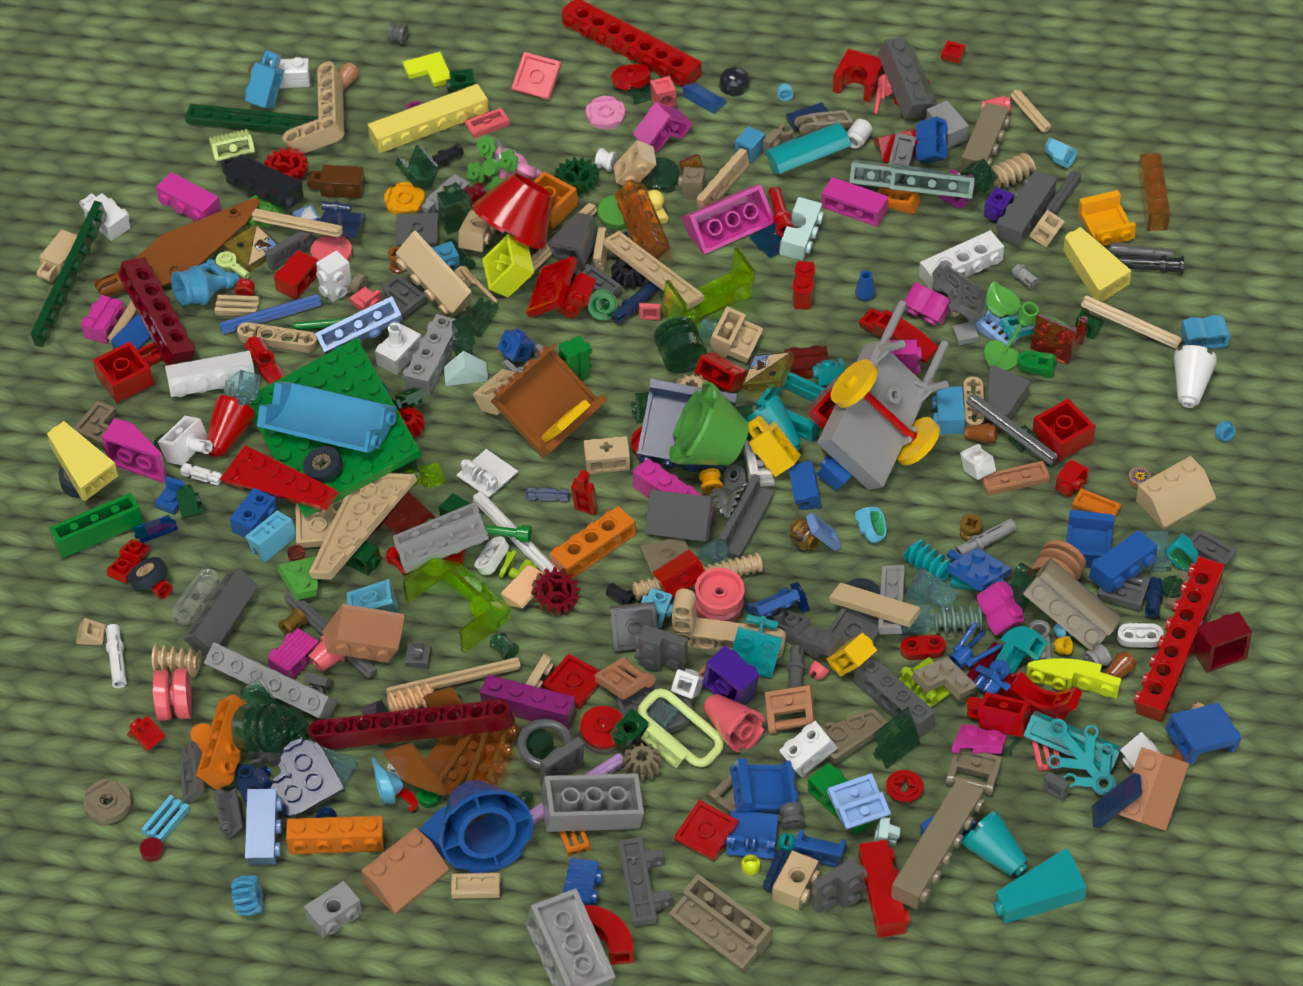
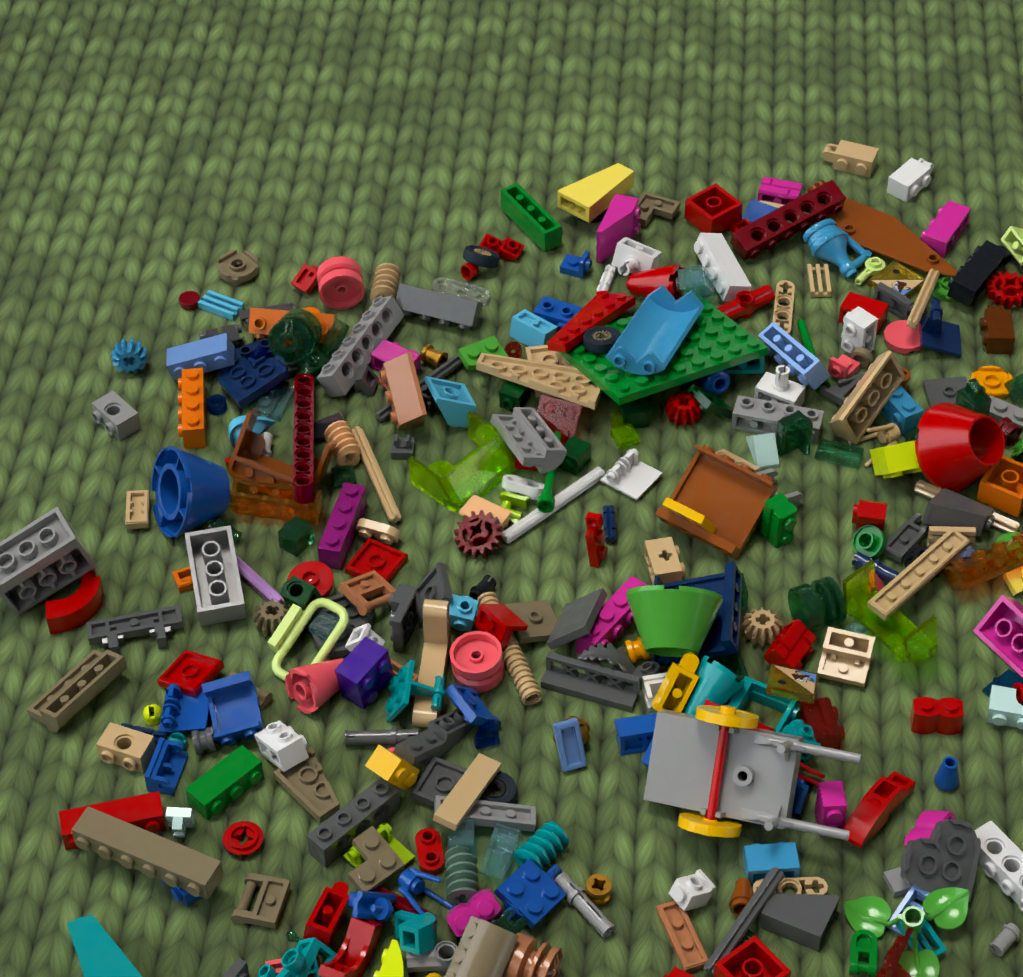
camera: 85 degrees right, 5 degrees down
(68, 273) = (825, 159): dark green plate -> none
(90, 633) = (420, 236): tan slope -> none
(115, 649) = (392, 252): white pin -> none
(155, 529) = (534, 256): clear blue piece -> none
(188, 501) = (563, 270): dark green brick -> none
(244, 287) = (839, 280): red bush -> none
(272, 313) = (813, 304): blue axle -> none
(307, 212) = (950, 313): tile -> none
(404, 871) = (142, 449): nougat slope -> none
(504, 645) = (413, 505): clear green bush -> none
(516, 345) = (797, 477): blue brick -> none
(551, 286) = (892, 498): red tile -> none
(562, 759) = (265, 549): dark grey tile -> none
(584, 877) = (132, 582): blue brick -> none
(594, 542) = (544, 560): orange brick -> none
(714, 550) = (536, 654): clear light blue cone -> none
(786, 702) = (340, 732): nougat plate -> none
(839, 885) = (106, 774): dark grey plate -> none
(858, 801) = (206, 785): light blue slope -> none
(871, 523) = (592, 793): medium azure rock -> none
(896, 738) = (293, 820): clear green hinge -> none
(979, 740) = (296, 898): dark pink wing -> none
(997, 845) = (154, 917): teal cone -> none

